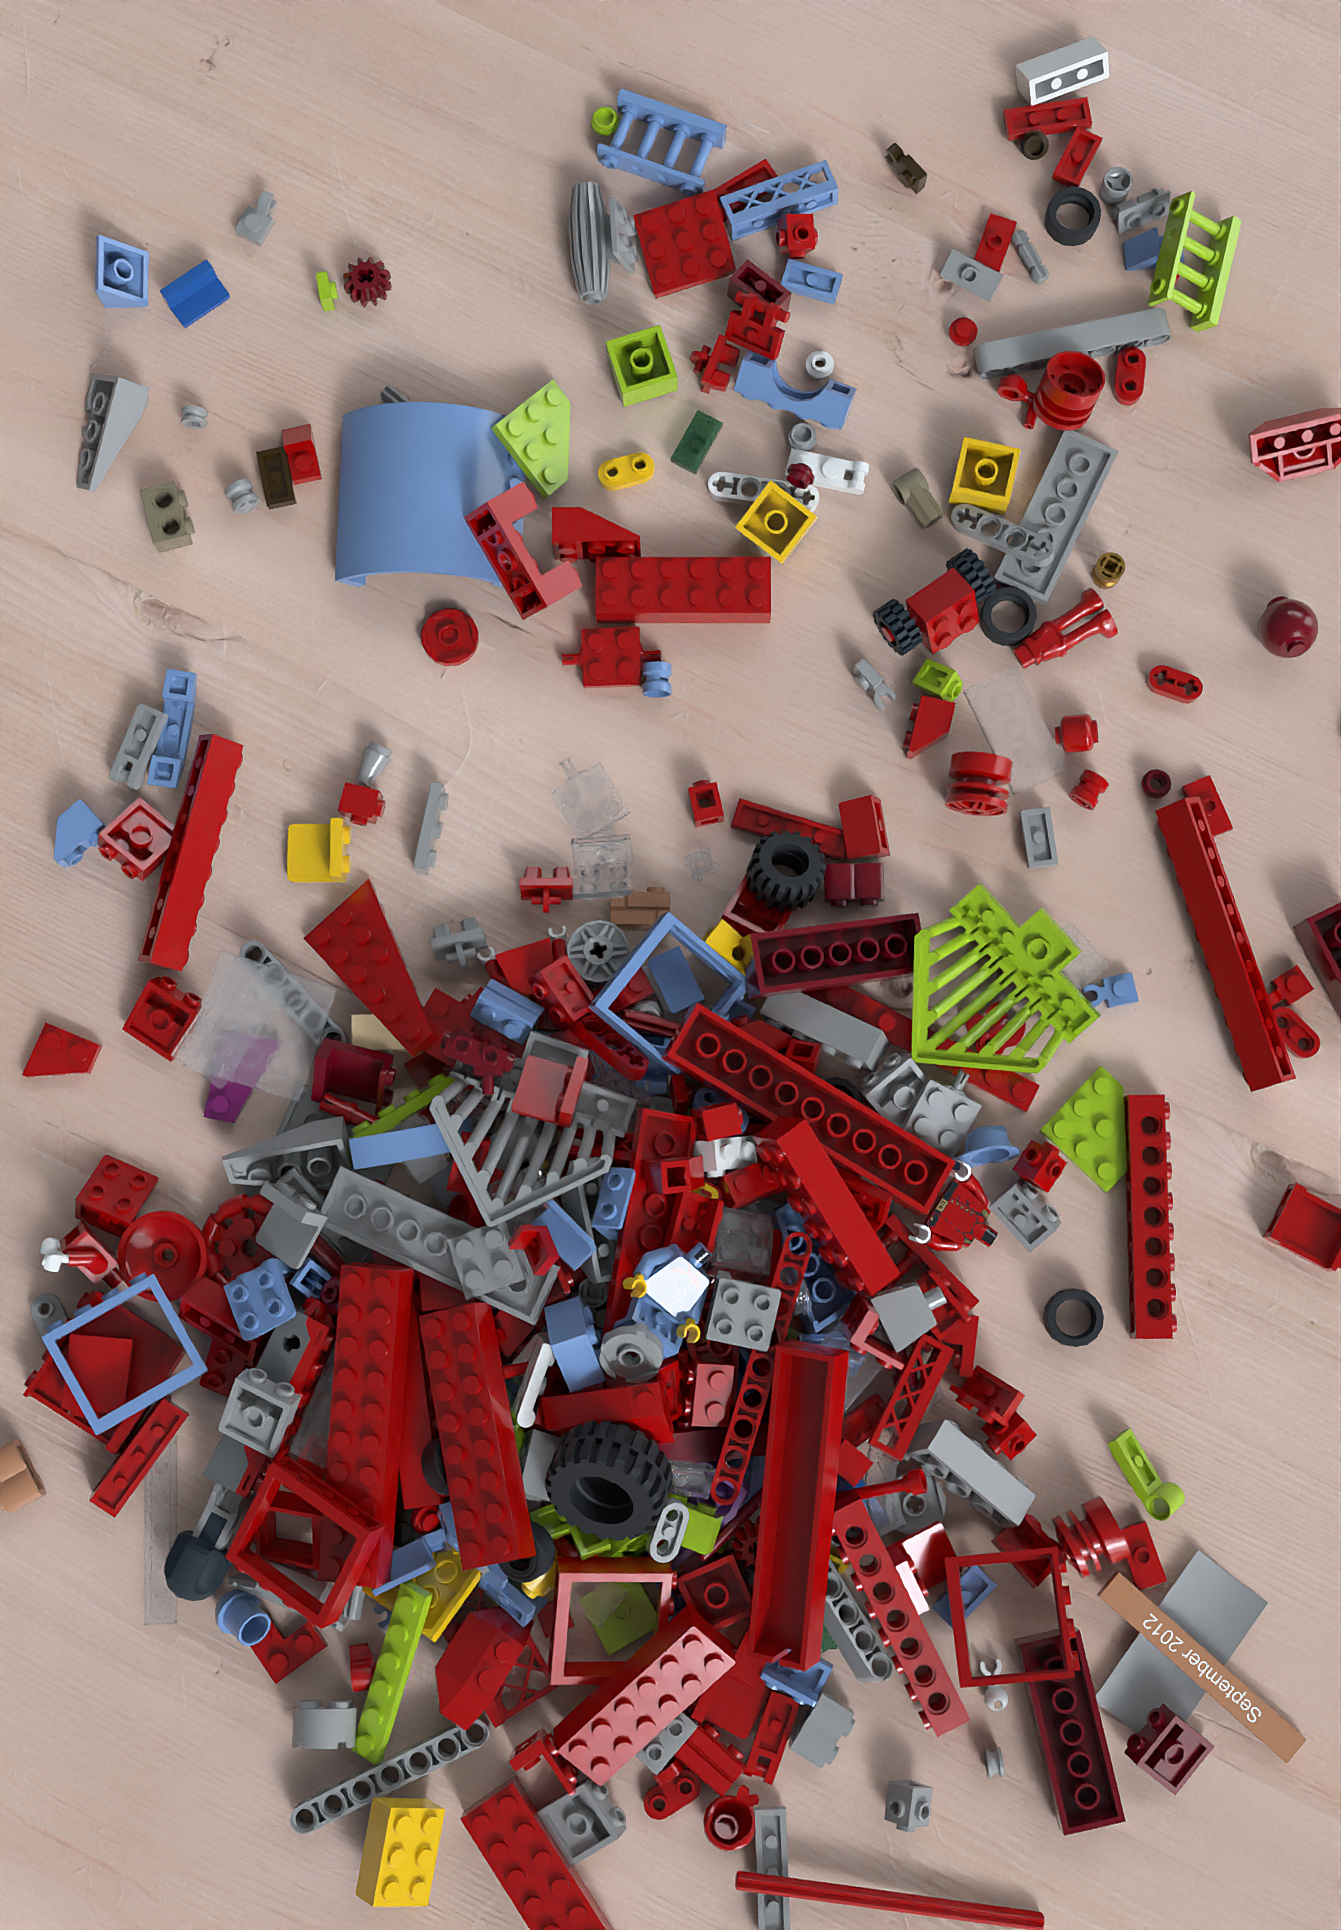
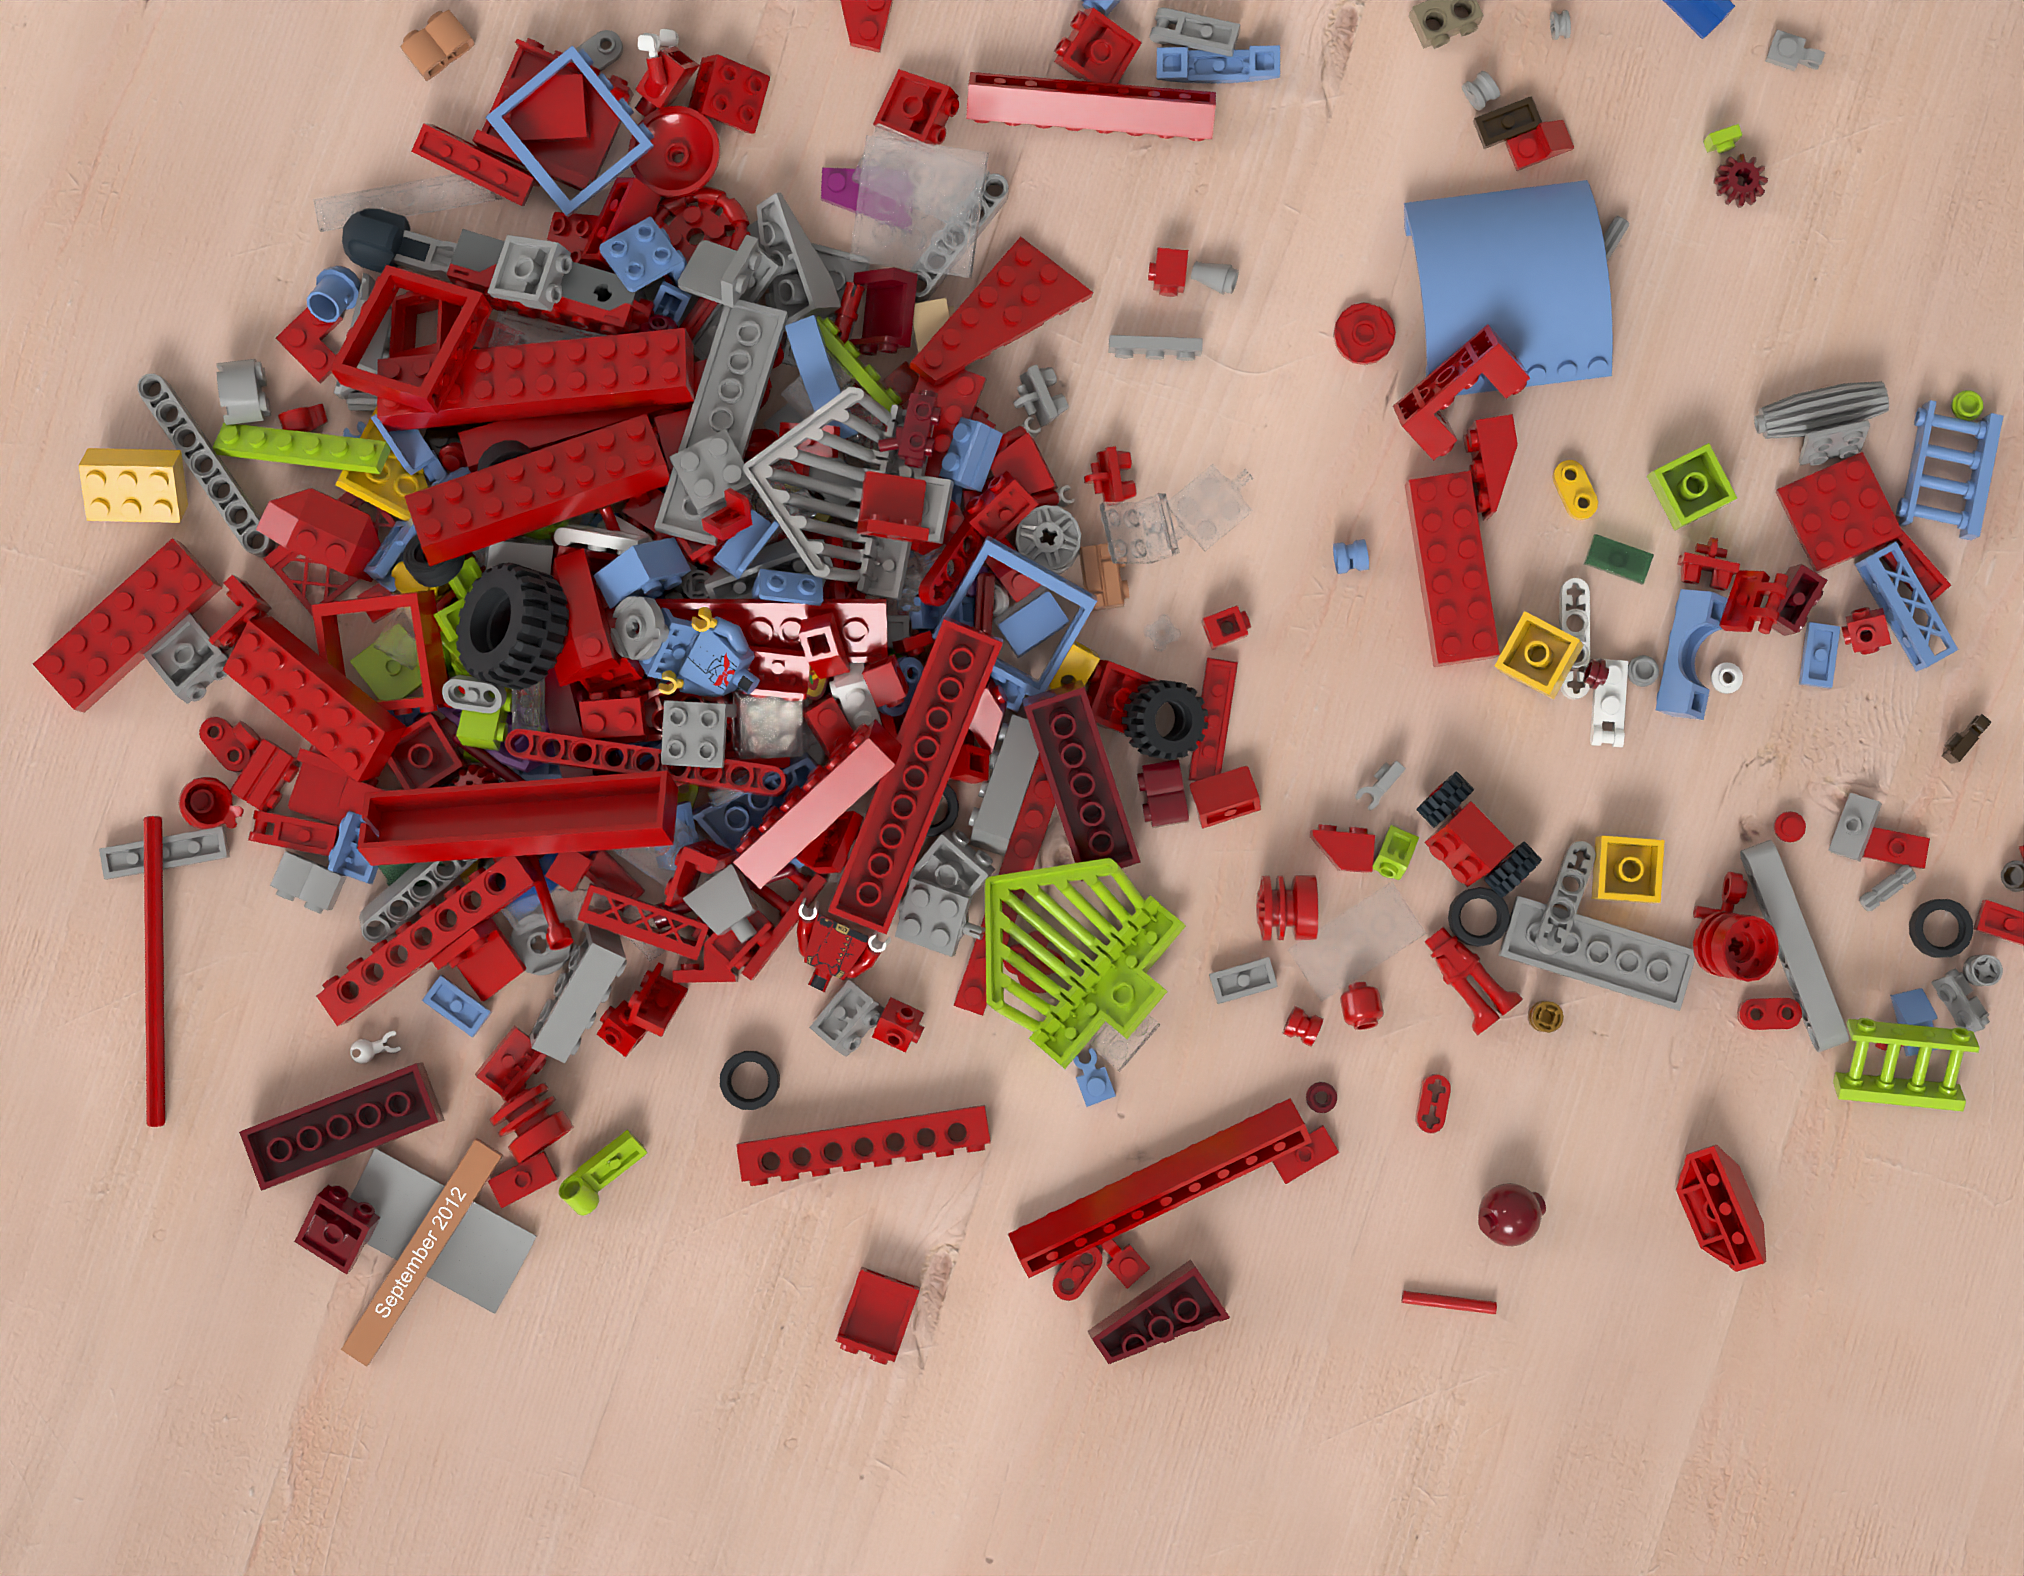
camera: 80 degrees right, 5 degrees up
(319, 852) = (1112, 236): yellow bracket -> none
(539, 437) = (1595, 391): lime plate -> none
(611, 657) = (1368, 505): red plate -> none
(667, 1742) = (273, 729): light grey brick -> none
(908, 1804) = (248, 976): light grey brick -> none
(914, 492) = (1599, 798): dark tan piece -> none
(987, 1146) = (910, 966): medium blue piece -> none
(994, 1762) = (300, 1057): light grey bush -> none
(1062, 1598) = (428, 1001): red window -> none
(1092, 1129) = (946, 1076): lime plate -> none

